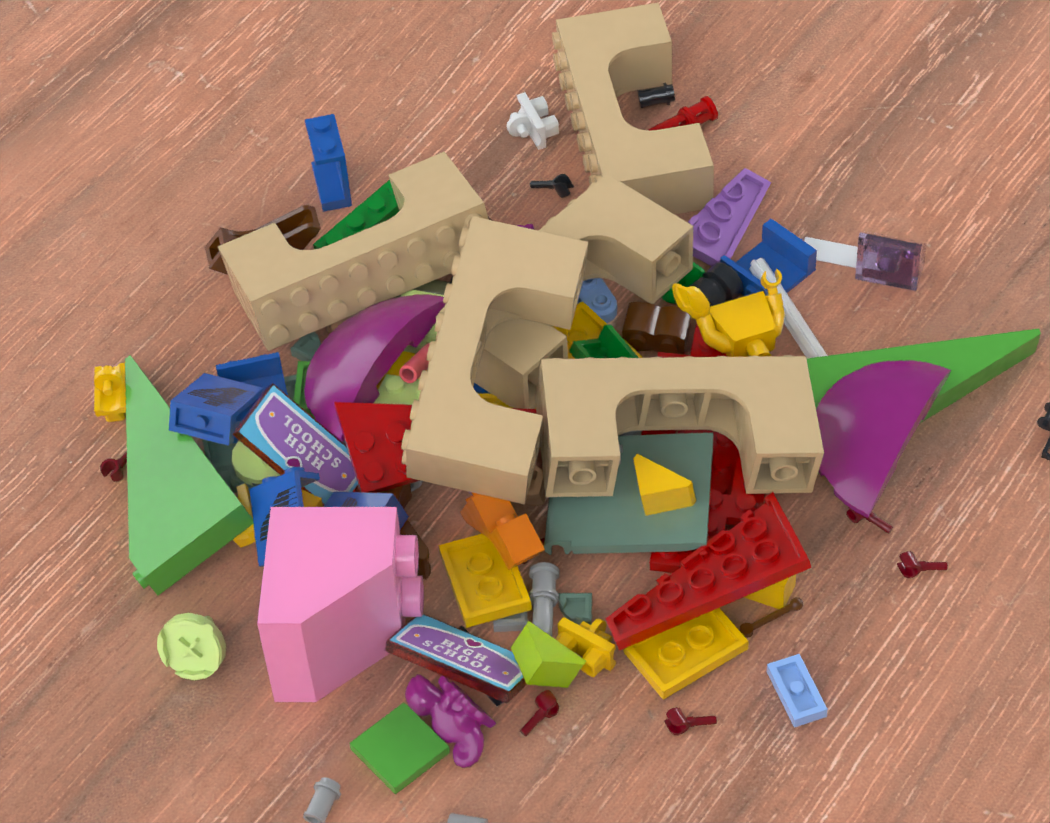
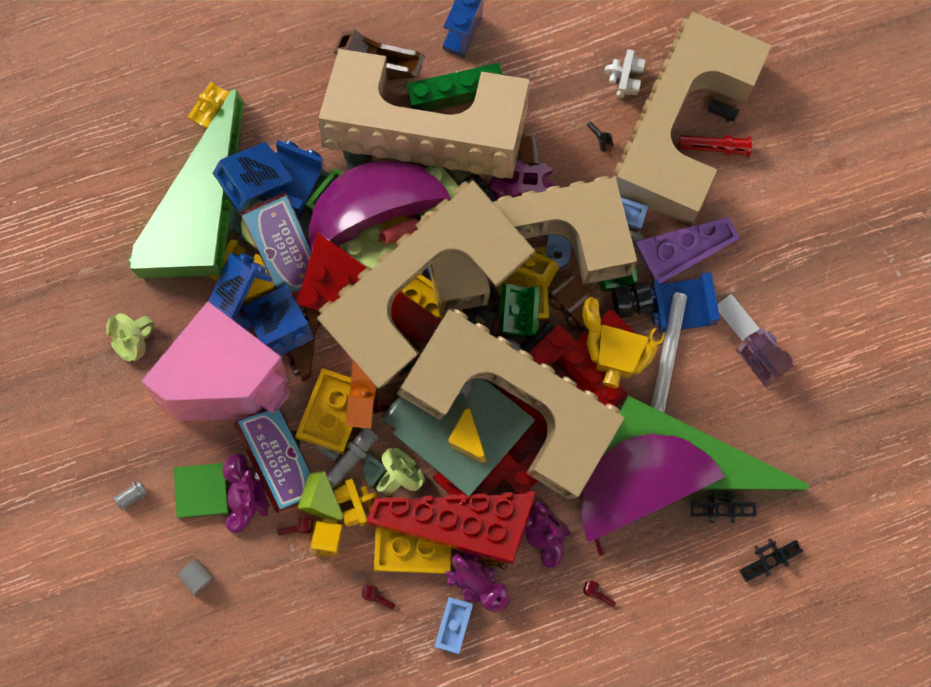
camera: 25 degrees right, 25 degrees up
(115, 465) = (179, 164): dark red hand -> none
(587, 696) = (327, 538): none -> yellow slope
(590, 319) = (539, 269): none -> yellow slope
(609, 584) = (399, 472): none -> yellowish green tile
(780, 626) = (477, 581): none -> magenta animal
(821, 545) = (546, 533): none -> magenta animal
(978, 404) = (730, 505): none -> black piece

